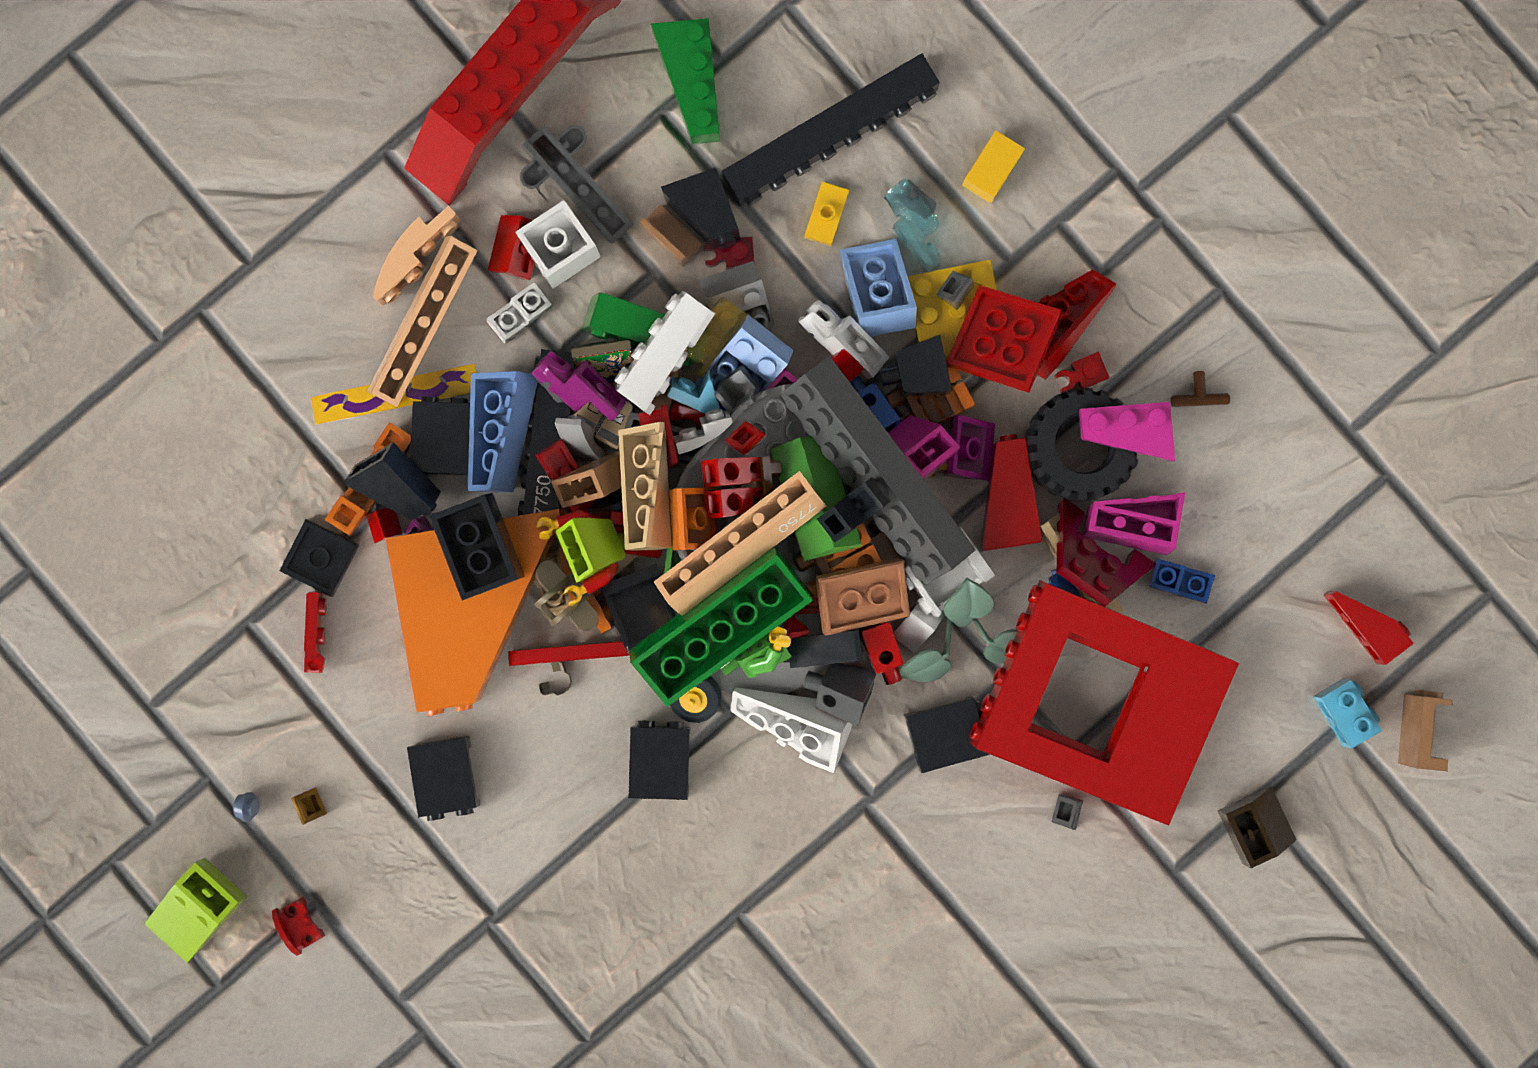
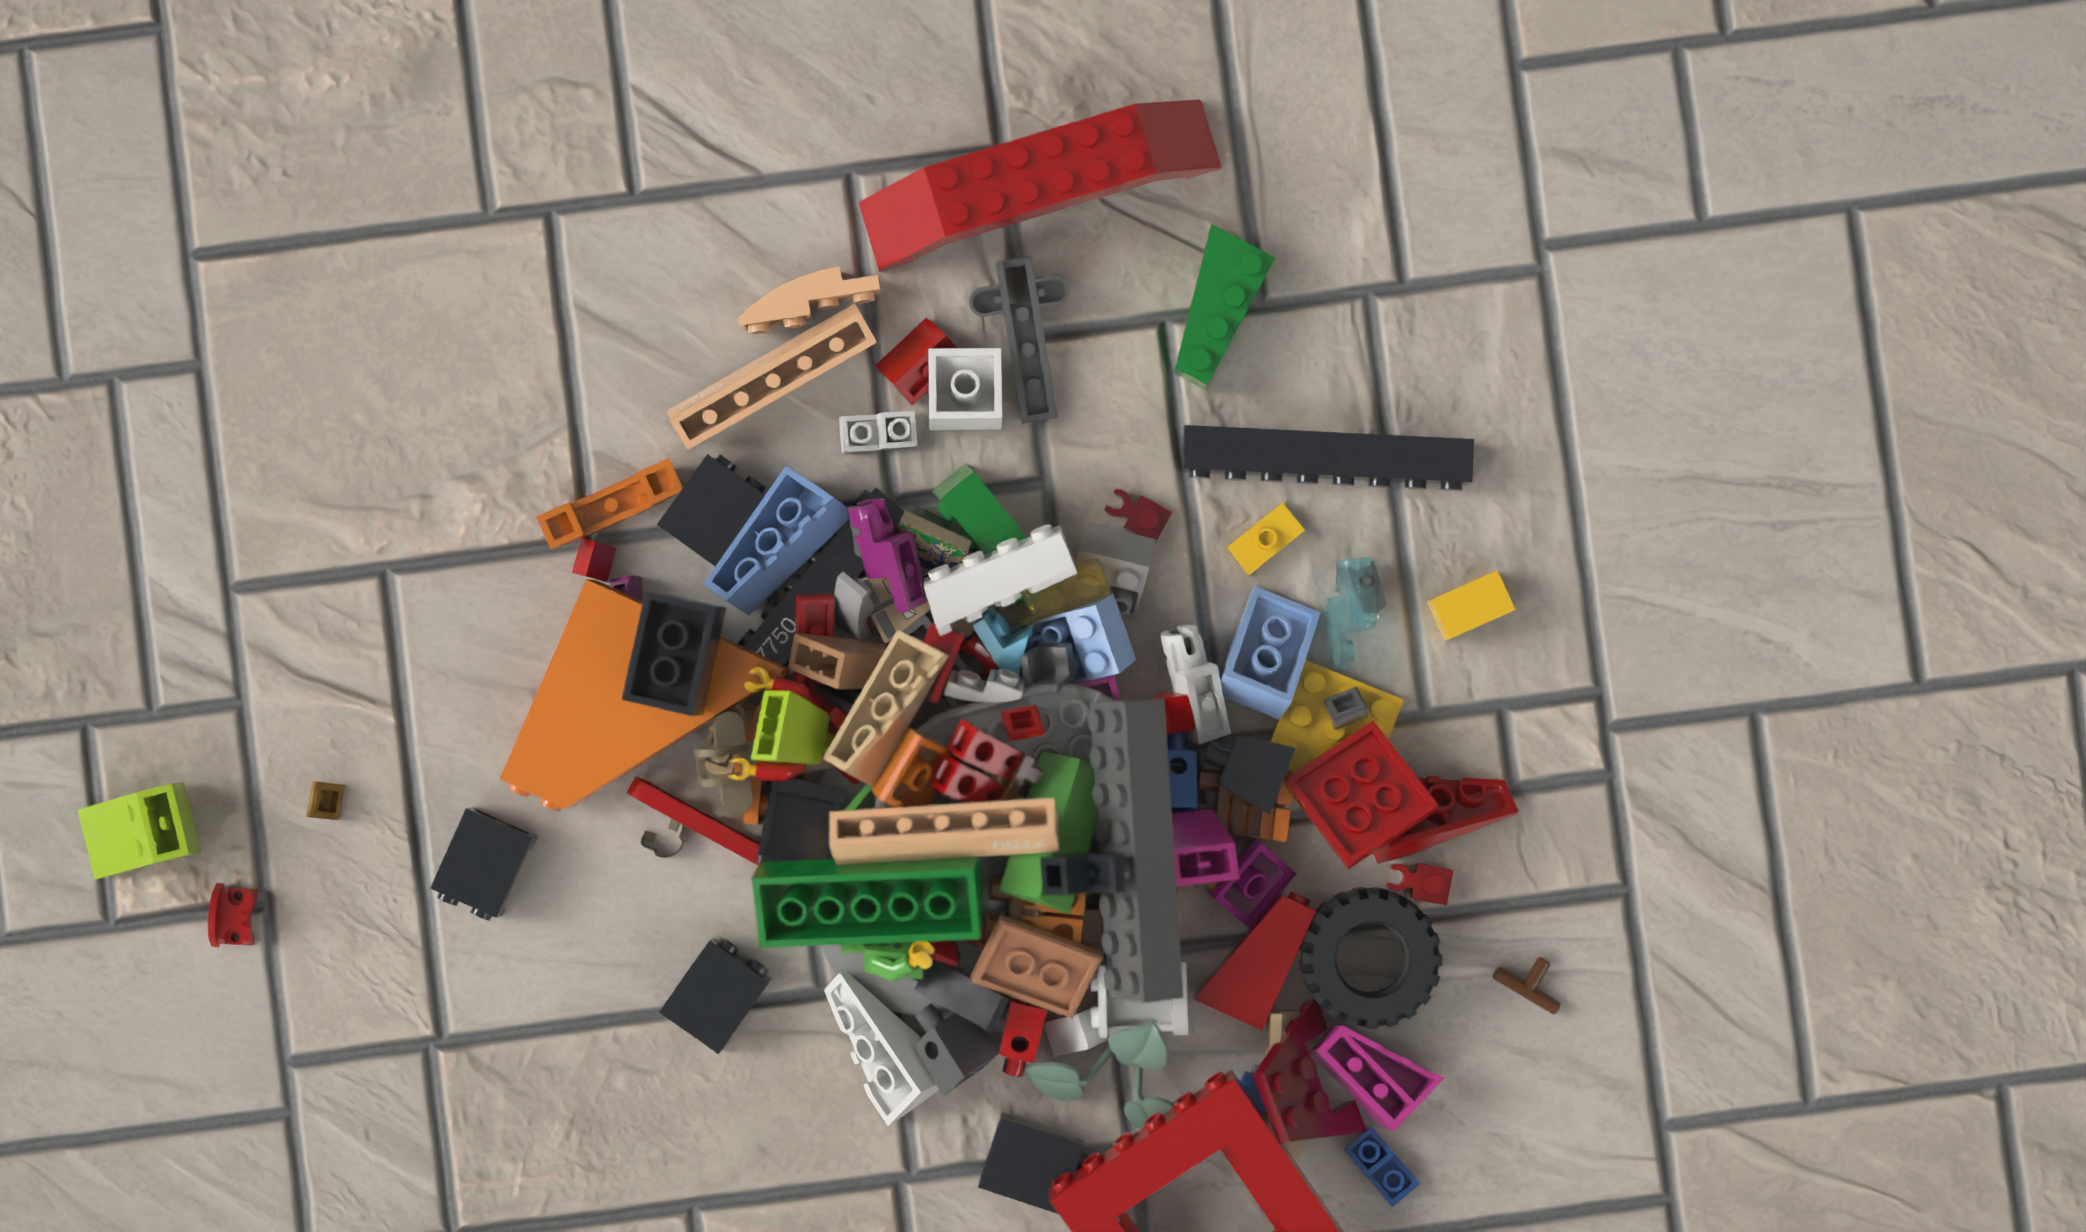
camera: 30 degrees right, 0 degrees up
(246, 806) = (261, 758): sand blue plate -> none
(314, 634) = (448, 626): red hinge -> none
(319, 558) = (504, 550): black tile -> none
(358, 402) = (650, 414): yellow sticker -> none
(394, 483) = (632, 526): black slope -> none
(671, 235) = (1089, 455): medium nougat panel -> none
(699, 702) = (797, 963): black wheel -> none
(704, 207) = (1142, 451): black slope -> none
(1131, 427) = (1430, 975): dark pink wing -> none

